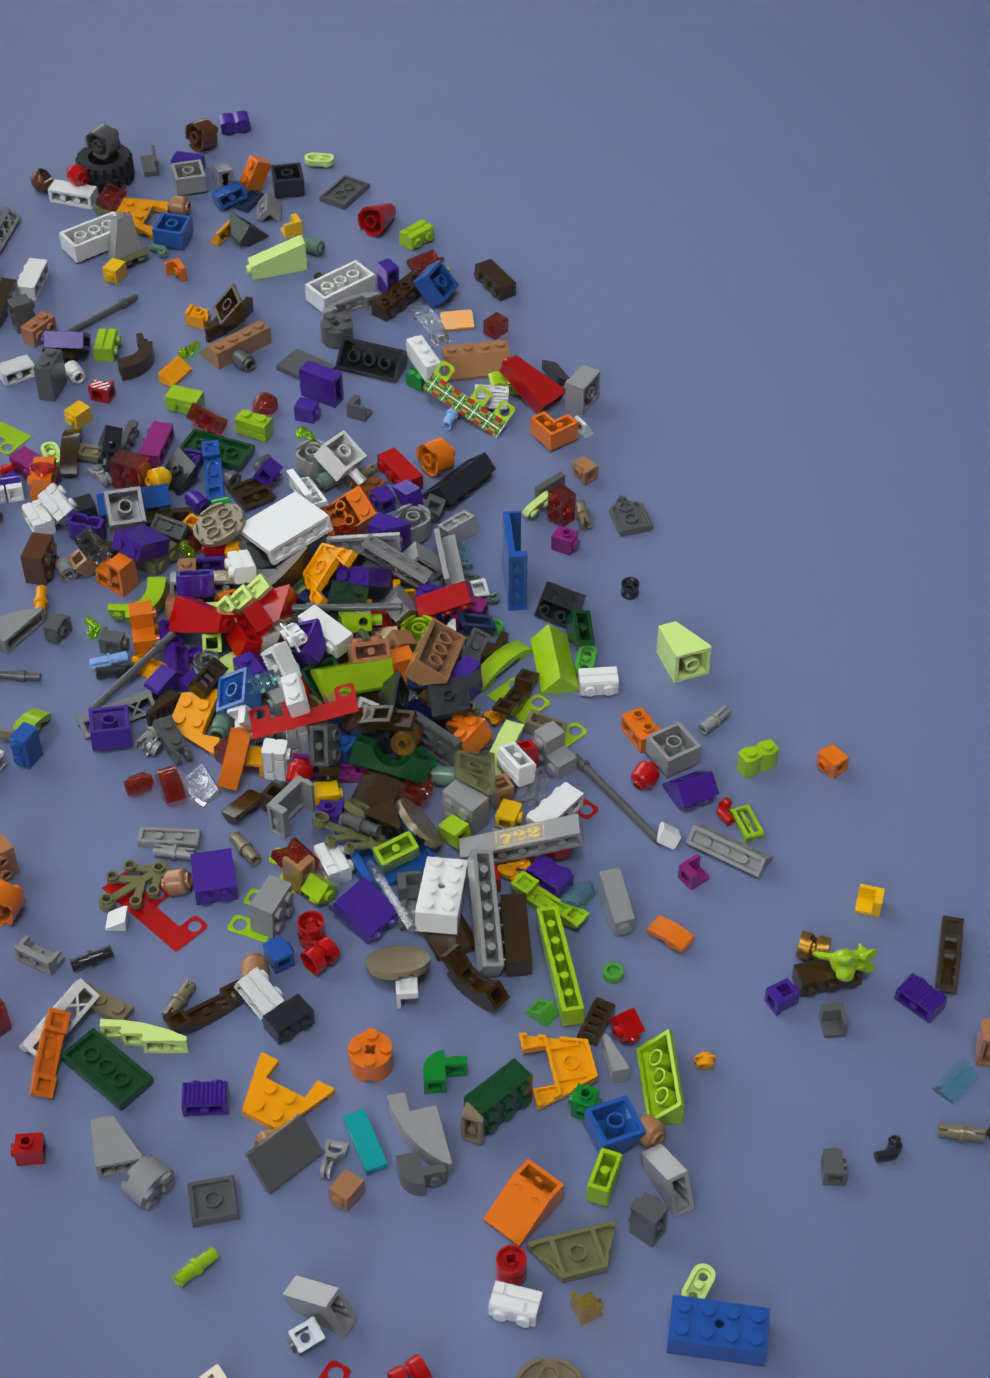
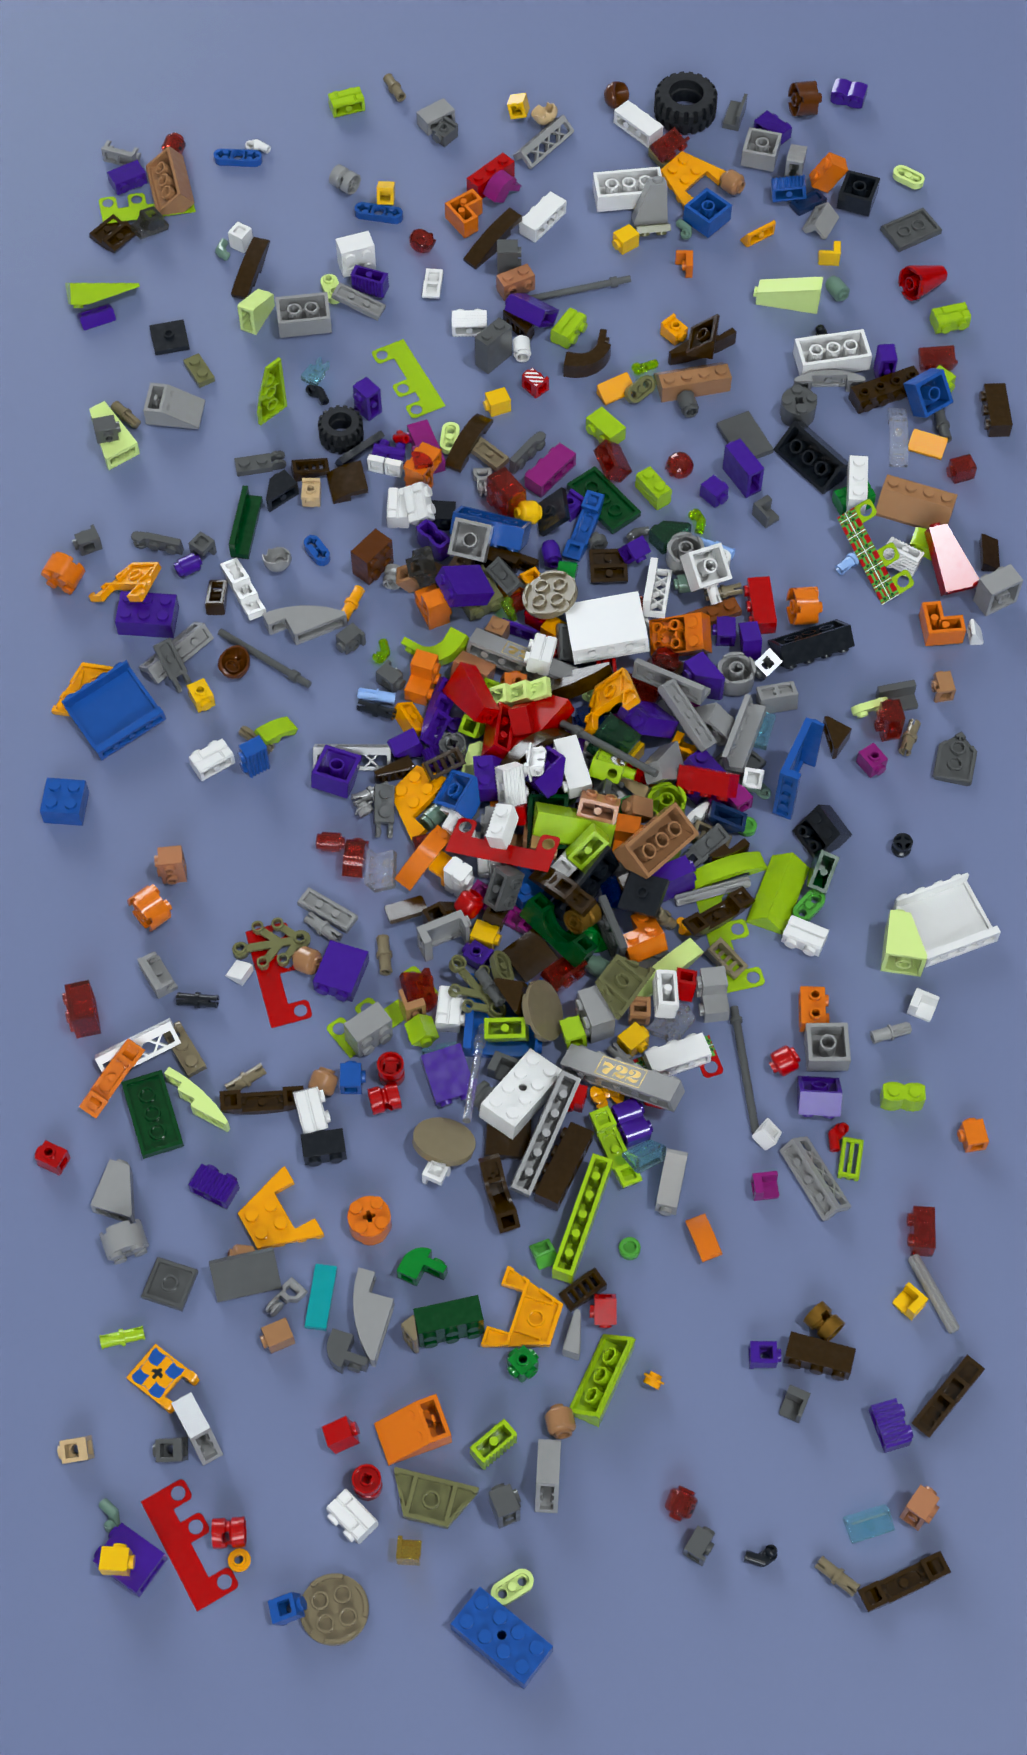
camera: 30 degrees right, 15 degrees up
(77, 175) = (649, 106): red head -> none
(103, 141) = (691, 77): dark grey brick -> none
(105, 449) = (500, 456): black torso -> none
(158, 647) = (421, 706): dark grey bar -> none
(195, 583) = (488, 654): dark purple brick -> none
(196, 364) = (638, 390): none -> olive plate
(245, 231) = (780, 241): pearl dark grey slope -> none
(252, 1282) = (158, 1376): none -> light orange flag
(263, 682) = (485, 797): clear light blue plate -> none
(285, 452) = (662, 533): none -> clear green slope
(378, 682) = (587, 846): none -> lime brick
(459, 304) = (942, 425): none -> dark grey pin
(461, 1239) = (341, 1434): none -> red brick
(498, 683) = (711, 891): none -> light grey axle
(527, 537) = (836, 735): none -> dark brown slope
(613, 1125) = (531, 1401): blue slope -> none
(706, 619) = (948, 919): none -> white panel
(726, 689) = (923, 1005): none -> white panel
(795, 1142) = (681, 1503): none -> clear red head
(843, 845) = (922, 1231): none -> clear red brick
(846, 961) = (836, 1357): lime animal -> none
(890, 891) = (933, 1293): none -> light grey axle

